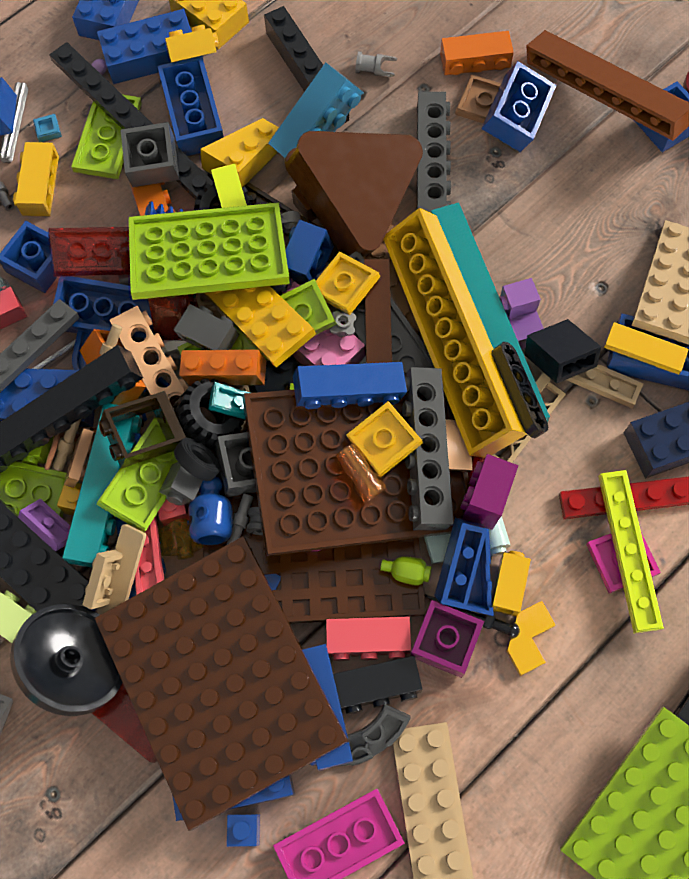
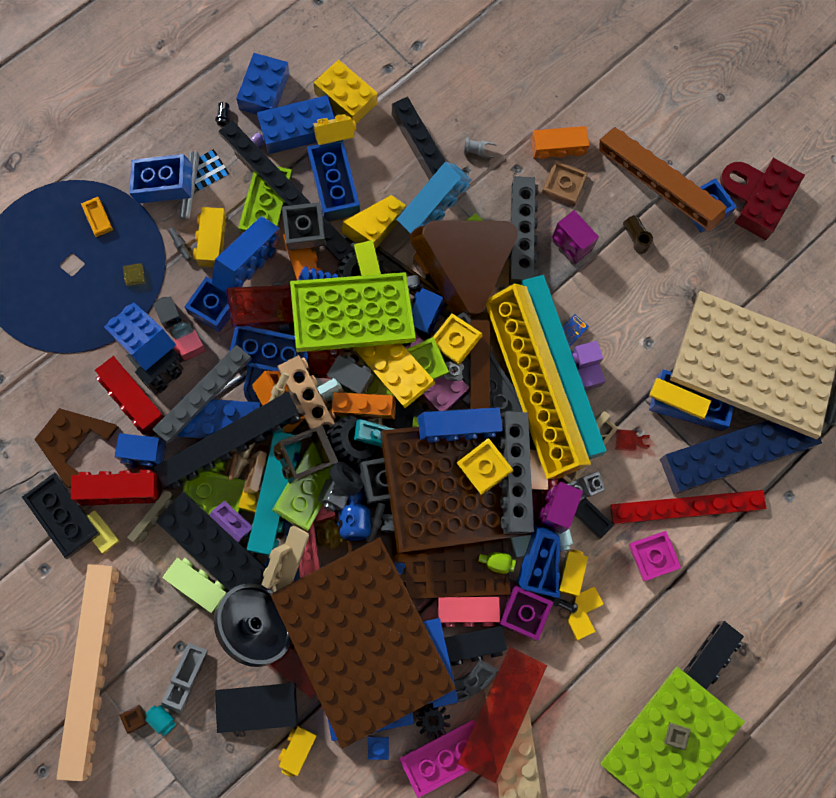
camera: 10 degrees left, 5 degrees up
(39, 103) = (209, 170): none -> sticker
(47, 128) = (216, 191): dark azure tile -> none
(57, 38) = (222, 115): none -> black pin
(75, 191) = (246, 255): none -> blue brick
(75, 776) = (256, 707): none -> black tile
(128, 842) = (294, 757): none -> yellow brick
(174, 344) = (329, 387): none -> light aqua tile
(320, 801) = (432, 728): none -> black gear
(360, 473) = (467, 492): clear orange axle -> none
(416, 781) = (502, 714): none -> clear red plate
(498, 159) = (574, 237): none -> magenta brick
(503, 272) = (574, 329): none -> blue tile
(519, 106) = (592, 192): blue brick -> none
(520, 390) = (585, 430): beam -> none
(530, 468) = (589, 484): none -> light grey slope
(536, 511) = (593, 518): none -> black tile
(562, 351) = (617, 398): black brick -> none
(580, 409) = (629, 440): none -> clear red plate
(583, 157) = (637, 233): none -> dark brown piece
(610, 385) = (645, 418): tan plate -> none
(630, 552) = (660, 551): neon yellow tile -> none
(668, 805) = (677, 736): none -> dark tan tile

